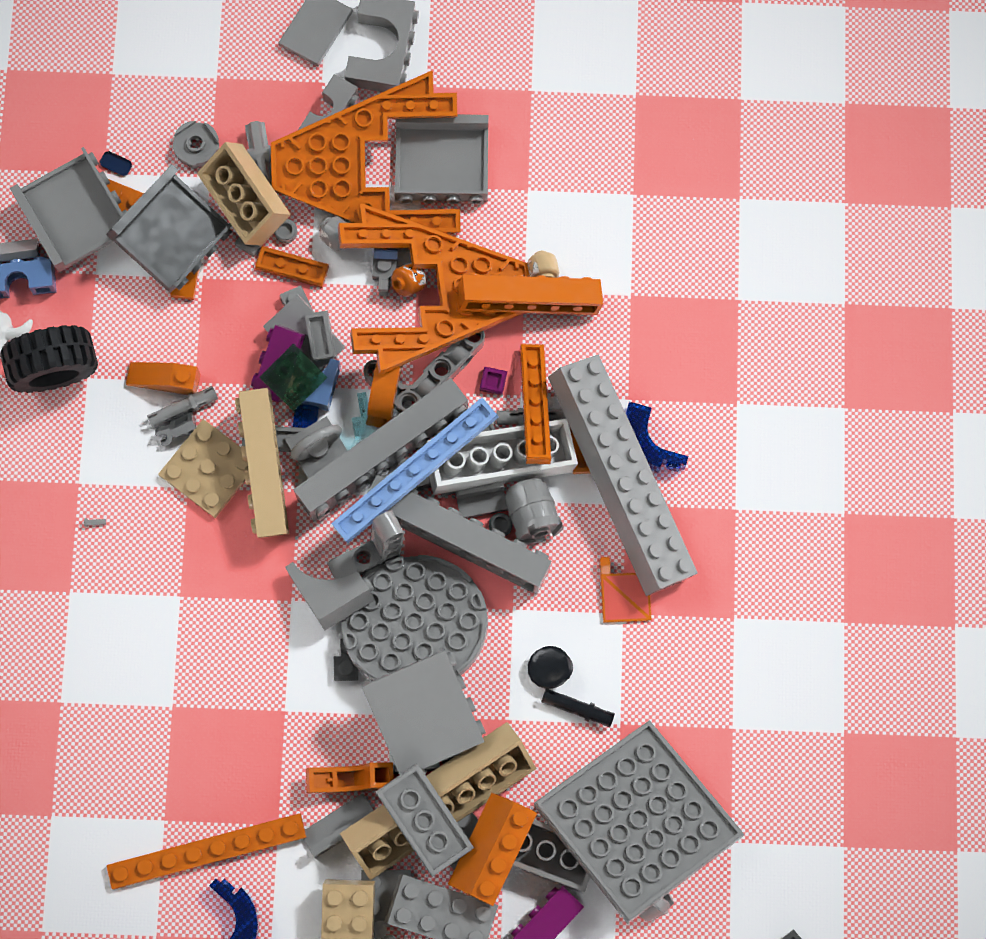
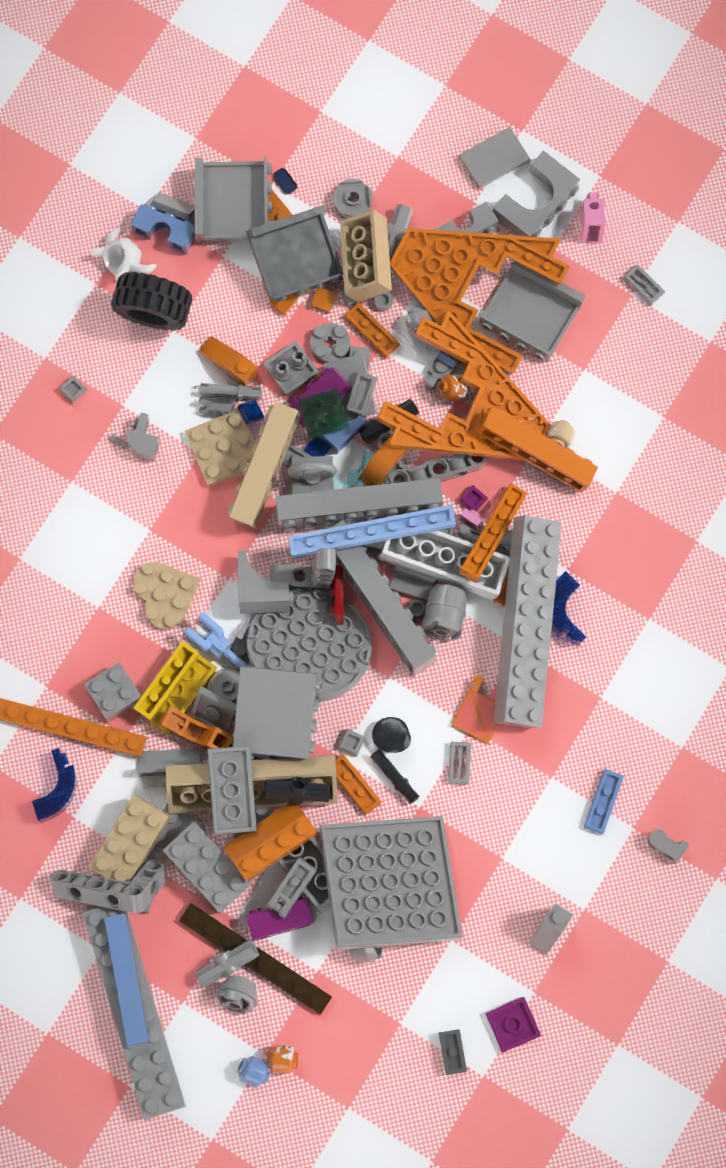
camera: 30 degrees right, 0 degrees up
(17, 495) = (73, 389): none -> light grey tile
(121, 512) = (140, 443): none -> light grey brick
(216, 417) = (250, 412): none -> clear blue tile
(225, 262) = (323, 300): none -> orange tile
(231, 350) = (291, 368): none -> light grey plate
(235, 652) = (166, 593): none -> tan plate
(239, 786) = (113, 692): none -> light grey brick
(257, 289) = (330, 331): none -> light grey plate
(300, 742) = (175, 685): none -> yellow slope
(313, 674) = (213, 641): none -> light blue plant
(353, 716) = (225, 684): none -> light grey cone
(354, 363) = (373, 430): none -> black piece
(355, 746) = (213, 710): none -> light grey plate
(413, 554) = (337, 593): none -> red hinge
(449, 29) = (592, 219): none -> bright pink torso
(491, 781) = (297, 790): none -> black piece
(503, 401) = (471, 518): none -> bright pink plate
(513, 697) = (351, 742): none -> light grey tile
(534, 81) = (638, 290): none -> light grey tile
(543, 884) = (292, 887): none -> light grey plate
(544, 740) = (355, 785): none -> orange tile
(624, 637) = (459, 767): none -> light grey tile
(800, 613) = (603, 801): none -> medium blue tile
(826, 772) = (551, 928): none -> light grey slope
(843, 892) = (513, 1024): none -> magenta tile
(887, 622) = (664, 845): none -> light grey leg

